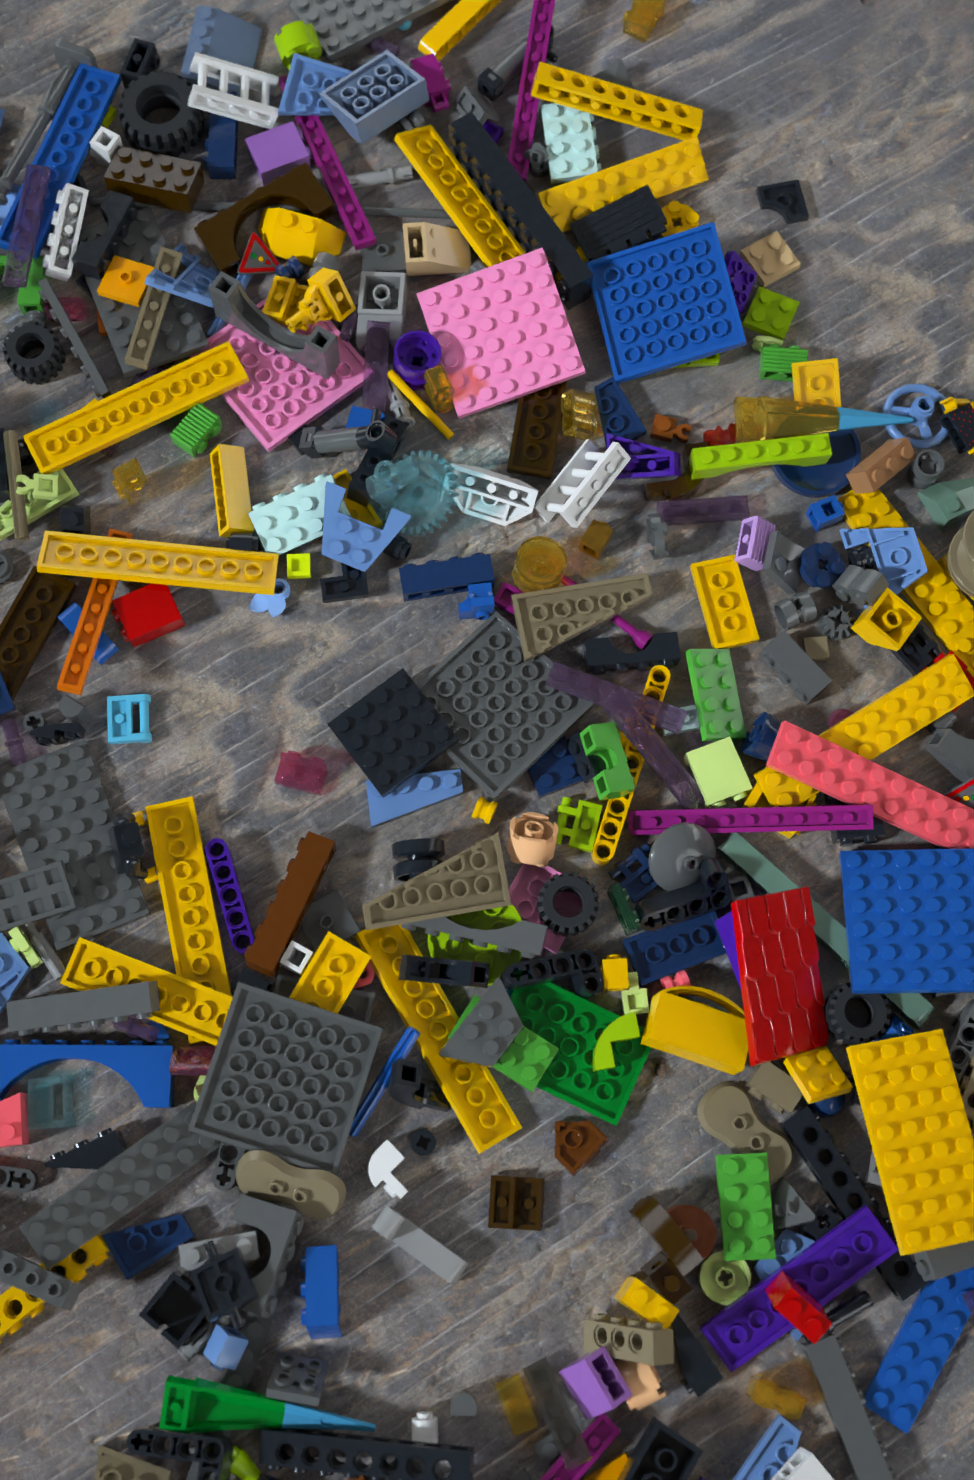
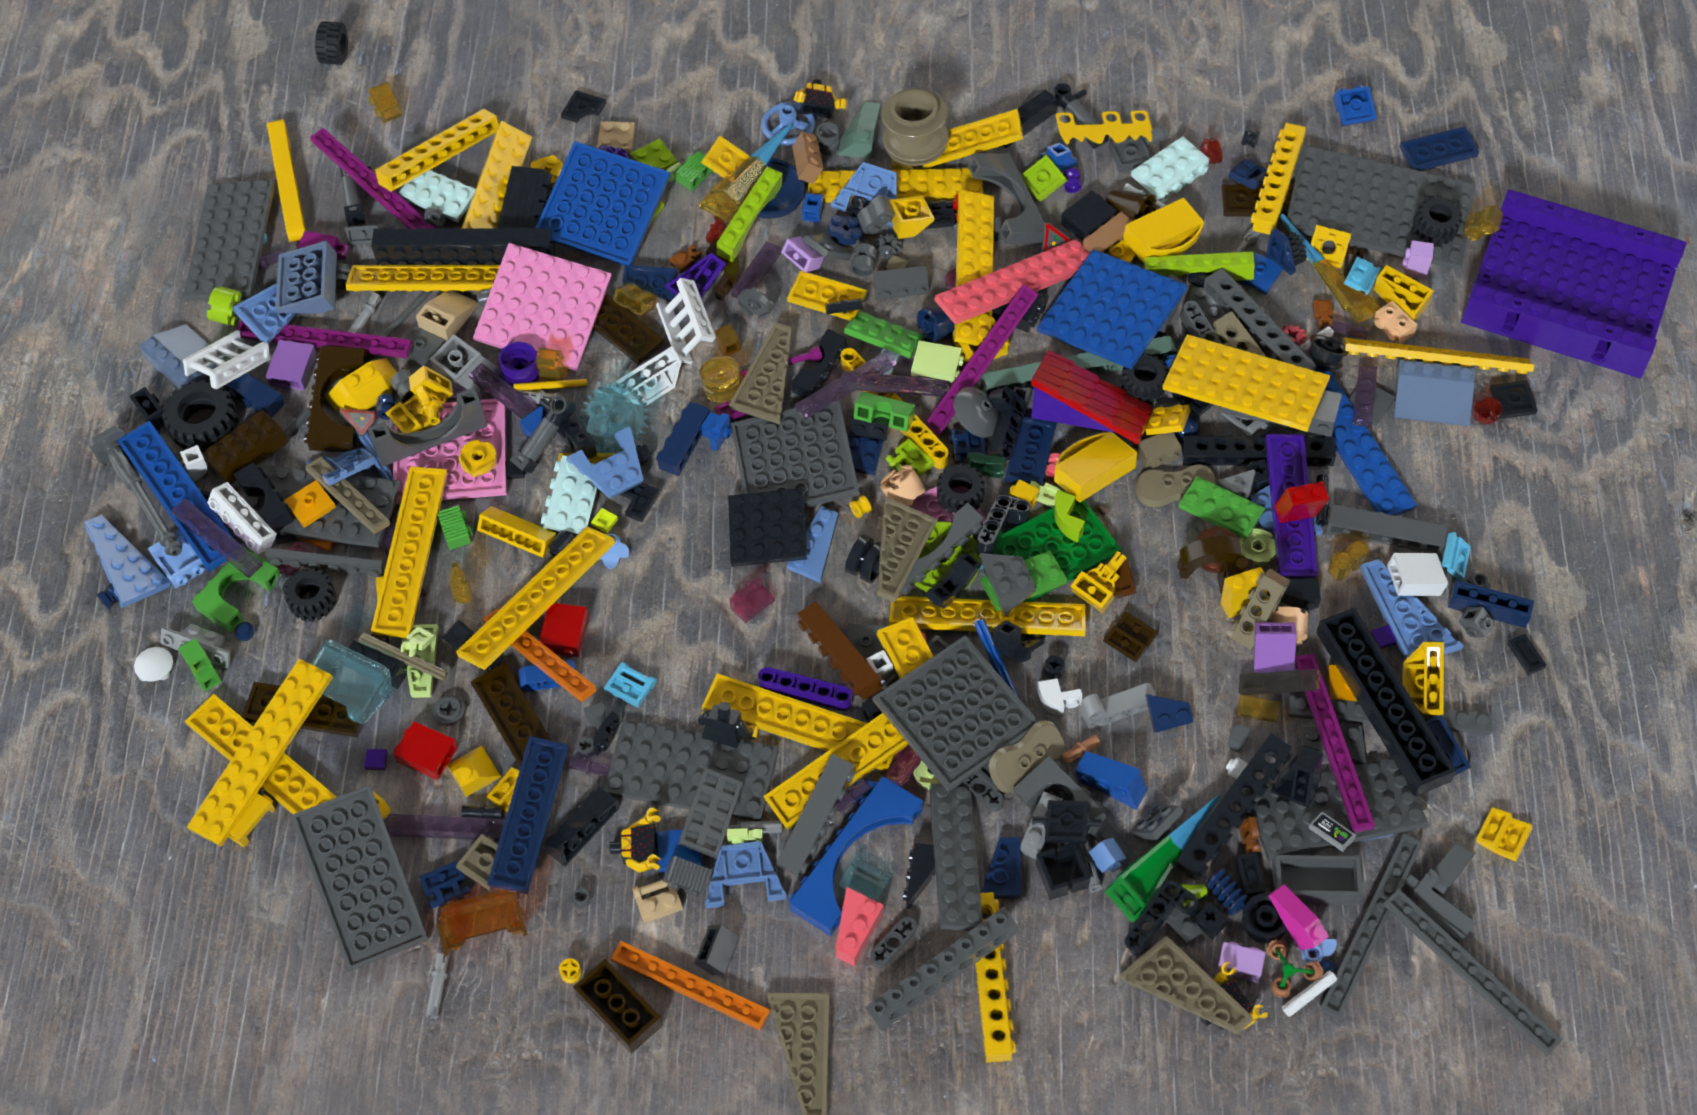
camera: 50 degrees left, 15 degrees down
(287, 408) = (481, 466): none -> yellow plate
(341, 1235) = (1080, 749): none -> nougat axle
(444, 1306) = (1167, 713): none -> dark blue wing
(548, 1129) = (1098, 584): none -> yellow brick
(717, 629) = (843, 306): none -> black pin

